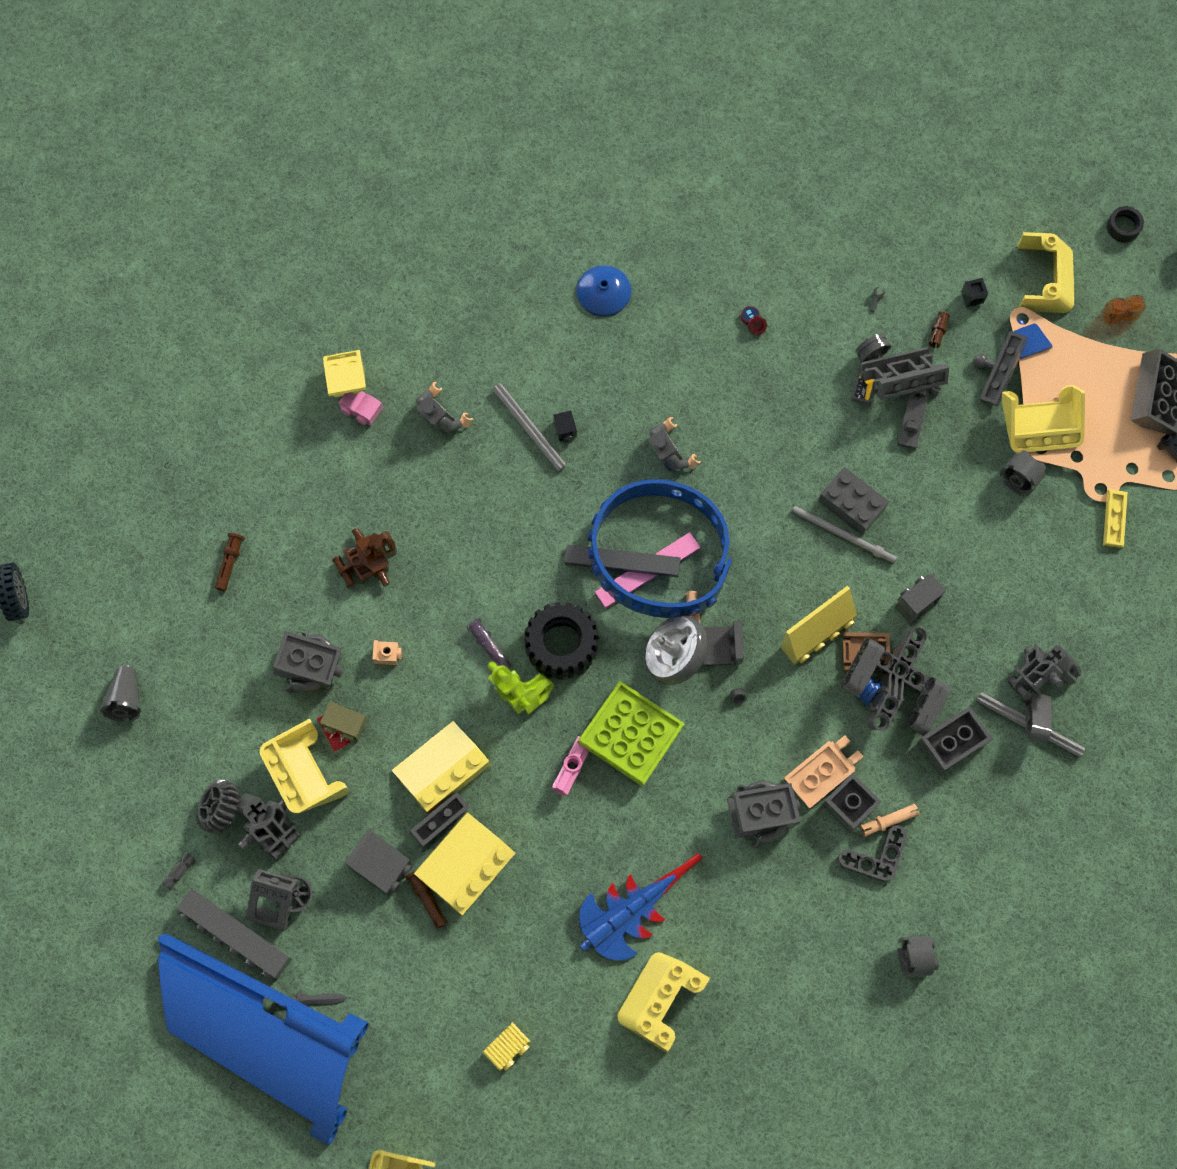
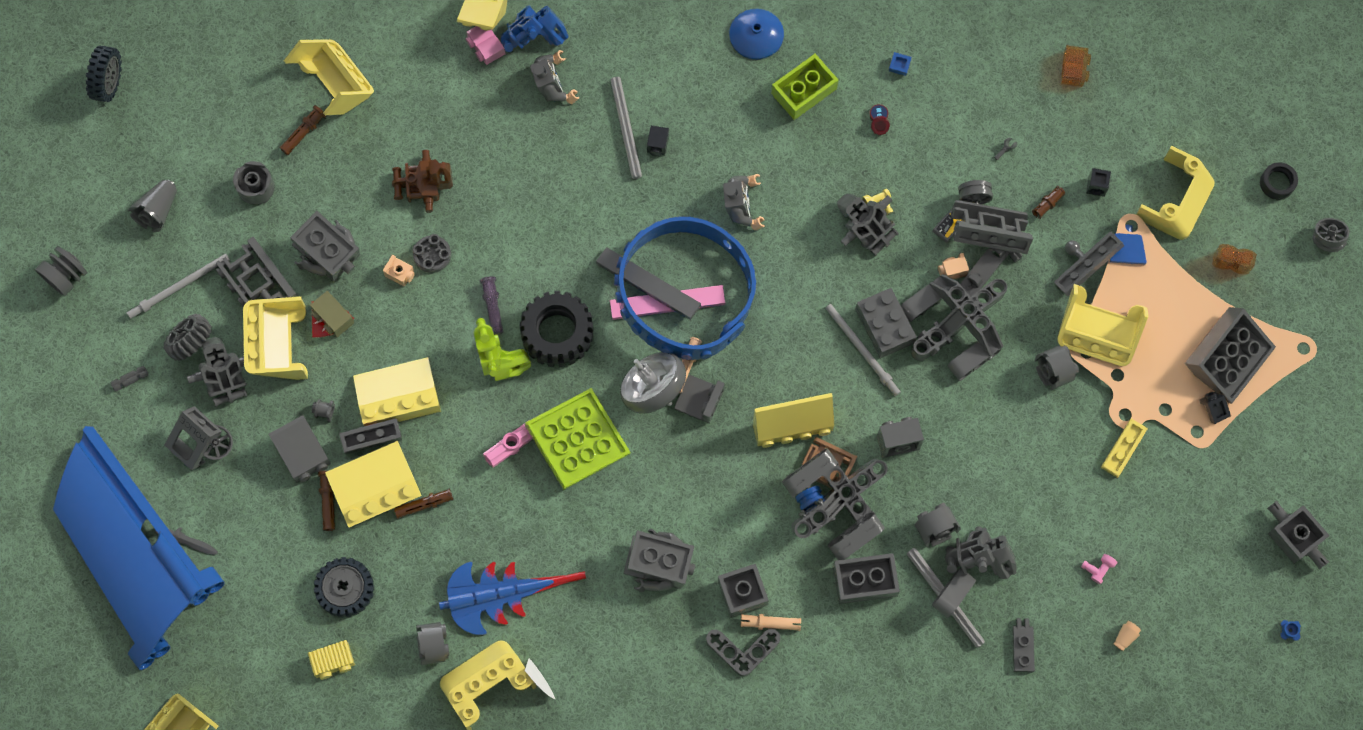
camera: 25 degrees right, 0 degrees up
(62, 798) = (61, 270): none -> dark grey wheel
(159, 794) = (145, 305): none -> light grey bar
(198, 635) = (254, 183): none -> dark grey brick
(232, 493) = (335, 71): none -> light yellow windscreen
(233, 933) = (149, 454): dark grey brick -> none
(263, 710) = (268, 272): none -> dark grey fence
(380, 815) = (323, 409): none -> dark grey brick
(398, 370) = (530, 24): none -> blue piece
(408, 622) = (431, 253): none -> dark grey tile
(485, 989) = (333, 597): none -> wheel
(519, 858) = (423, 503): none -> reddish brown pin
(594, 986) = (431, 643): none -> dark grey brick
(673, 319) = (804, 86): none -> lime brick
(708, 972) = (537, 677): none -> white sticker
(737, 700) = (690, 454): dark grey hinge -> none
(746, 262) = (900, 64): none -> blue plate
(782, 398) = (879, 197): none -> light yellow piece
(791, 416) = (867, 222): none -> dark grey piece
(822, 772) = (732, 551): light nougat tile -> none
(887, 424) = (954, 267): none -> light nougat brick
(900, 198) = (1075, 65): none -> clear orange brick
(952, 474) = (988, 340): none -> dark grey piece
(992, 662) = (937, 525): none -> dark grey brick
(1119, 736) = (1023, 647): none -> dark grey hinge
(1153, 627) = (1098, 574): none -> bright pink piece

